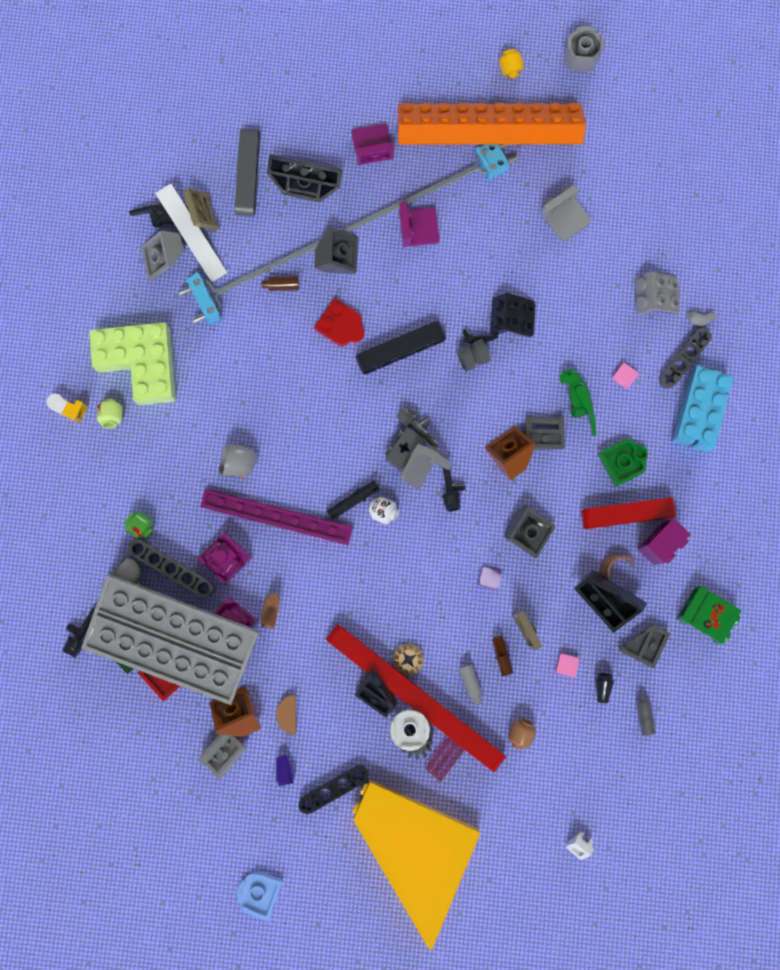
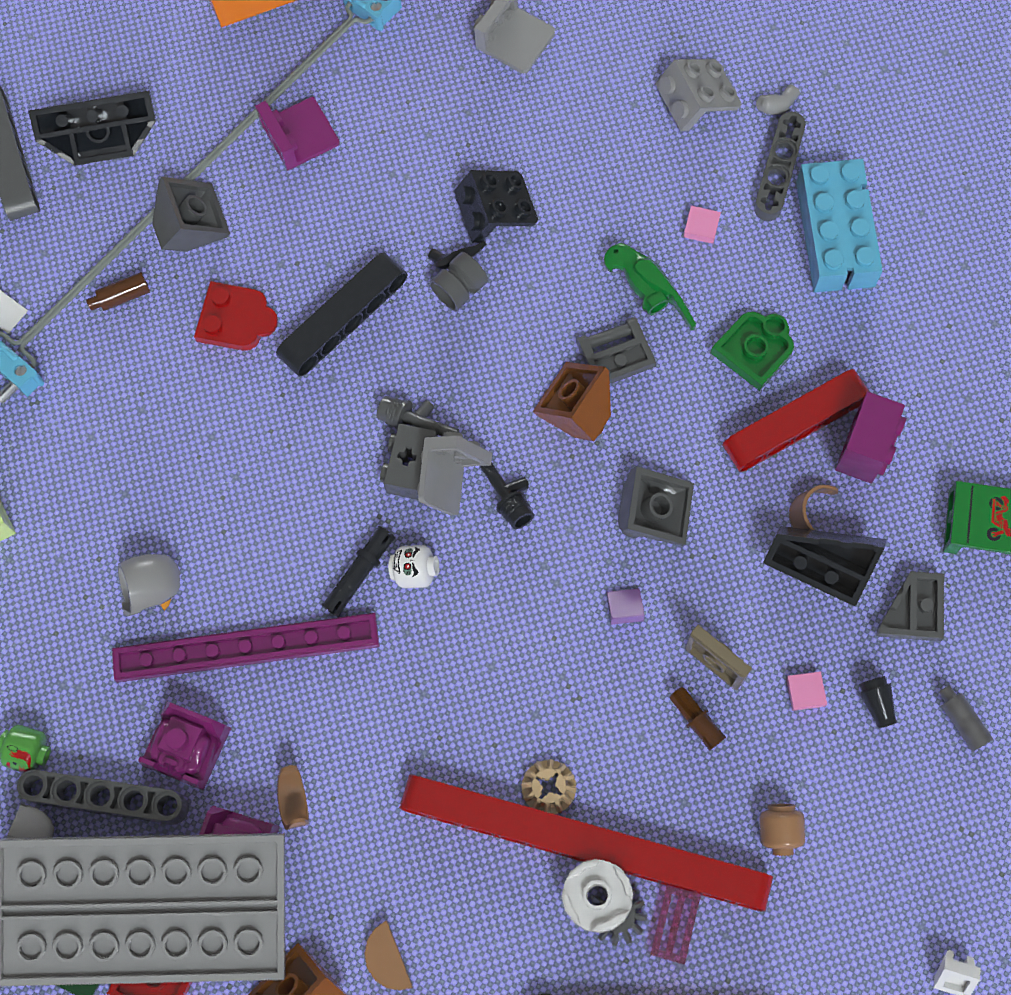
camera: 15 degrees left, 10 degrees down
(372, 144) = (183, 45): magenta bracket -> none
(376, 694) = (519, 863): black wing -> none
(471, 683) = (665, 782): light grey cylinder -> none

